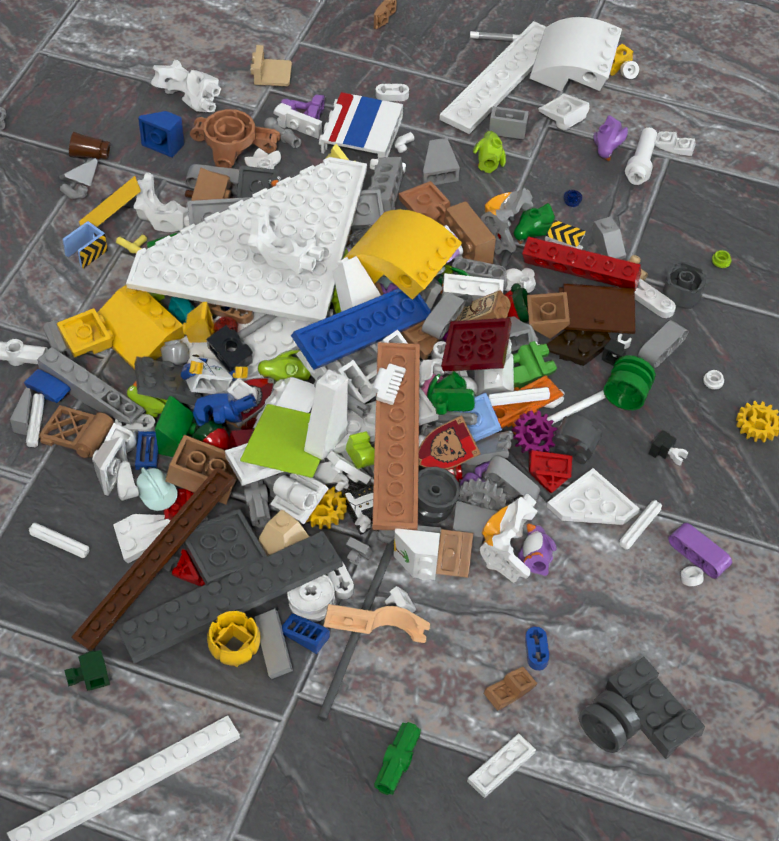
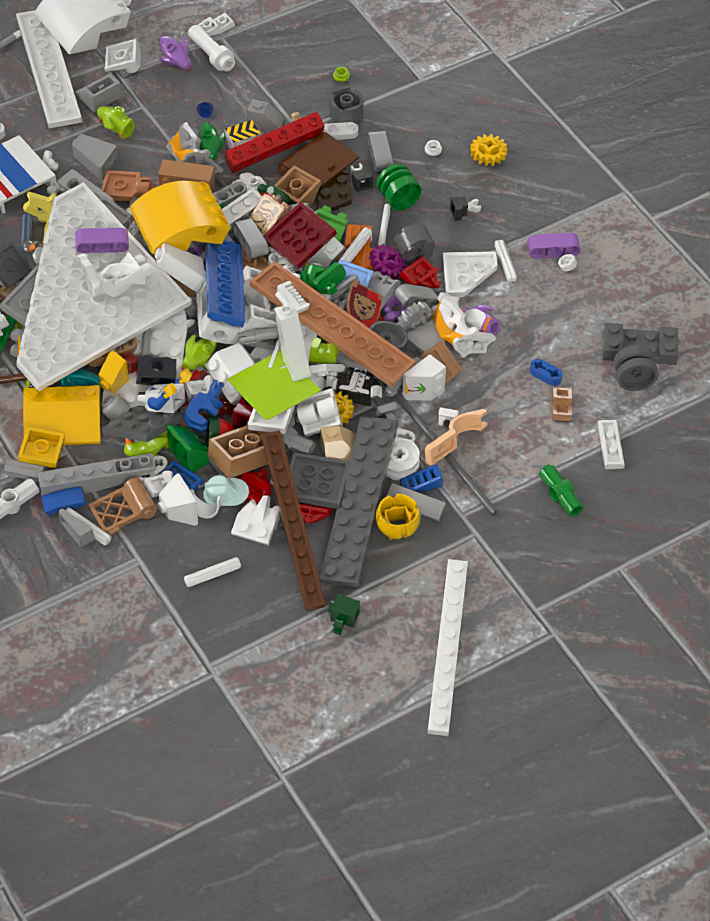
camera: 50 degrees left, 0 degrees up
(315, 215) = (101, 240): none -> medium lavender beam

